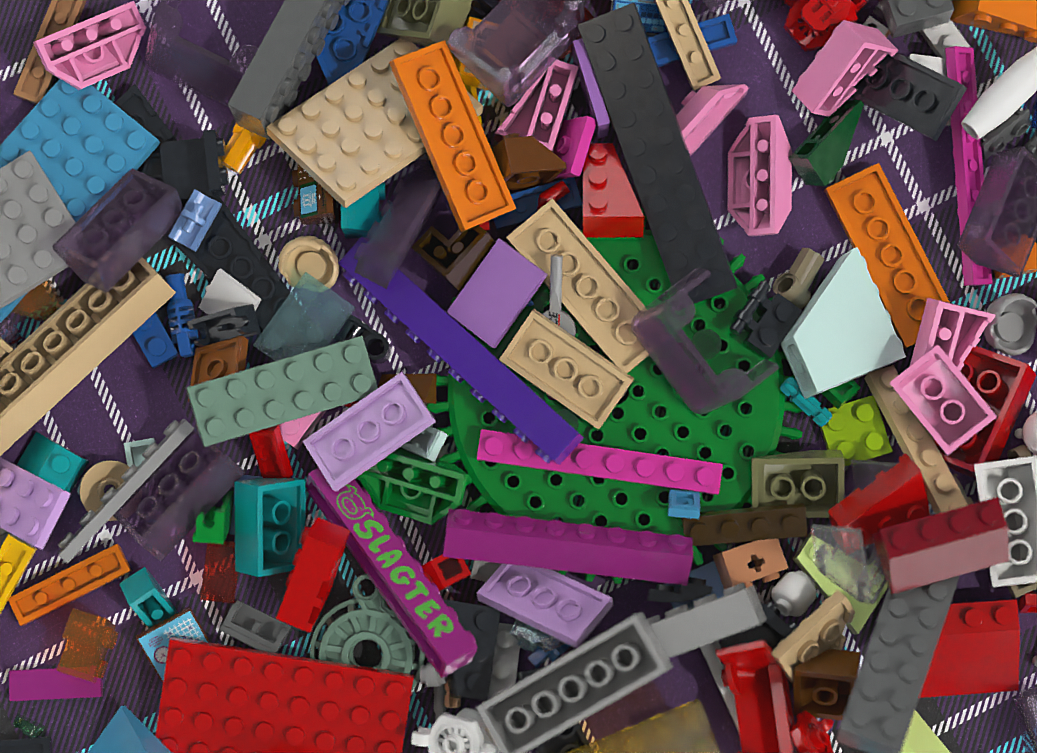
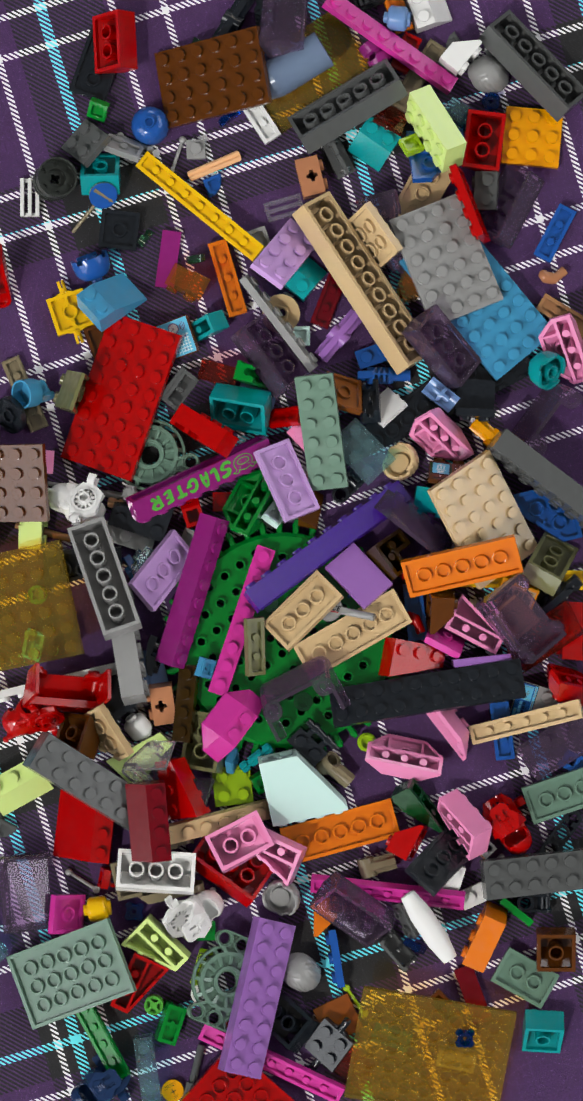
camera: 100 degrees right, 5 degrees up
(47, 639) = (195, 259): none -> clear green tile
(82, 423) = (327, 303): none -> dark red tile
(127, 69) = (545, 369): none -> teal cylinder
(131, 395) = (338, 336): none -> medium lavender piece
(260, 210) = (440, 436): none -> bright pink wedge
(419, 532) = (219, 500): none -> red plate
(635, 433) = (254, 646): none -> olive plate
(746, 244) = (363, 740): none -> lime plate
(762, 449) = (229, 722): none -> dark pink wedge
(817, 439) = (231, 761): none -> dark azure tile
(888, 151) = (406, 842): none -> red slope
(934, 199) = (371, 866): none -> dark tan piece

